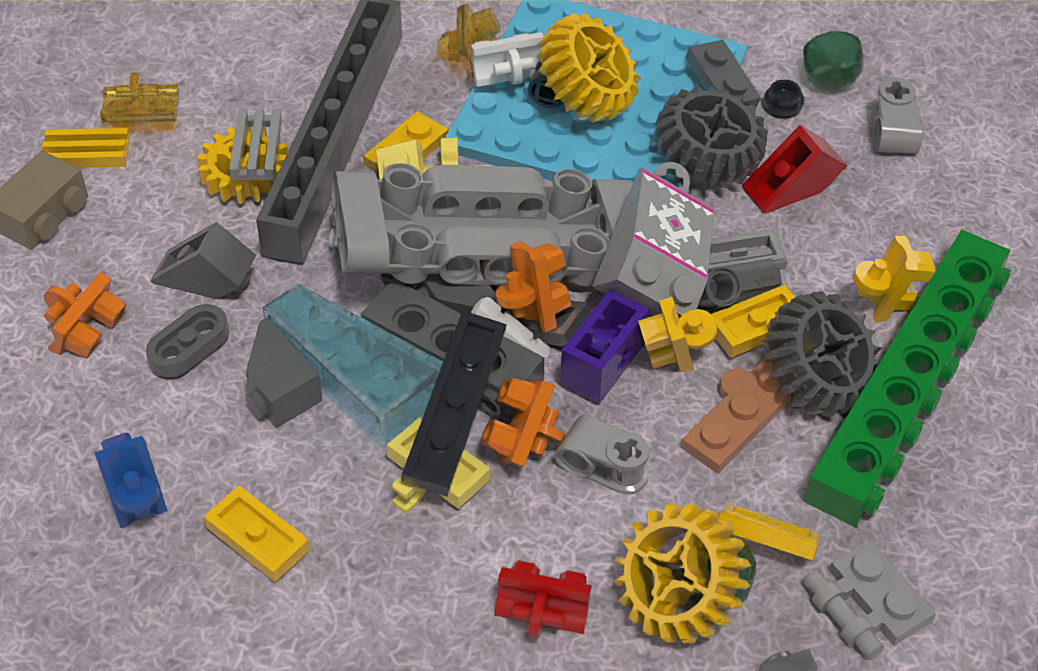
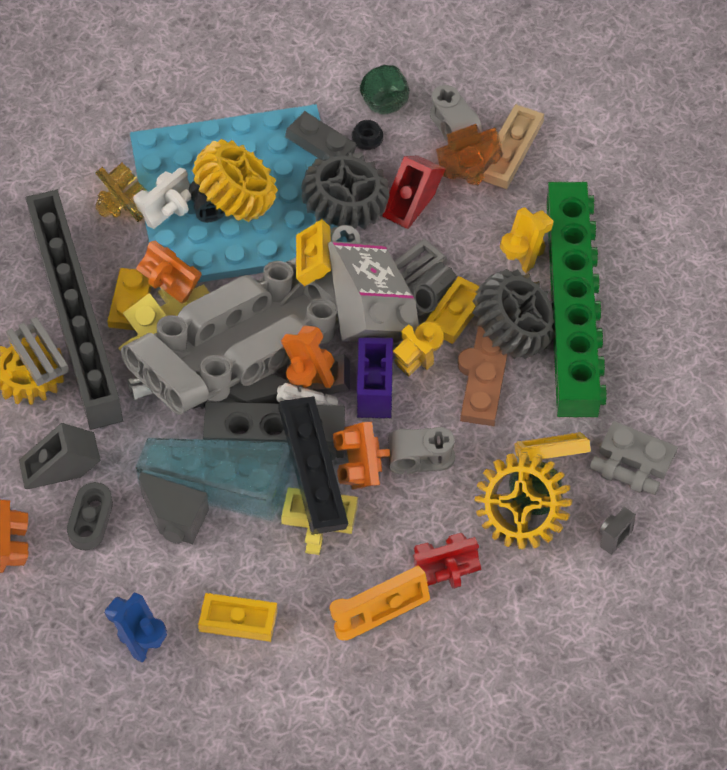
camera: 30 degrees left, 5 degrees up
(425, 605) = (379, 603): none -> light orange plate
(453, 129) = (168, 272): none -> orange hips
(617, 180) = (313, 253): none -> yellow plate
(888, 160) = (470, 153): none -> clear orange plate
(944, 178) = (516, 140): none -> tan plate

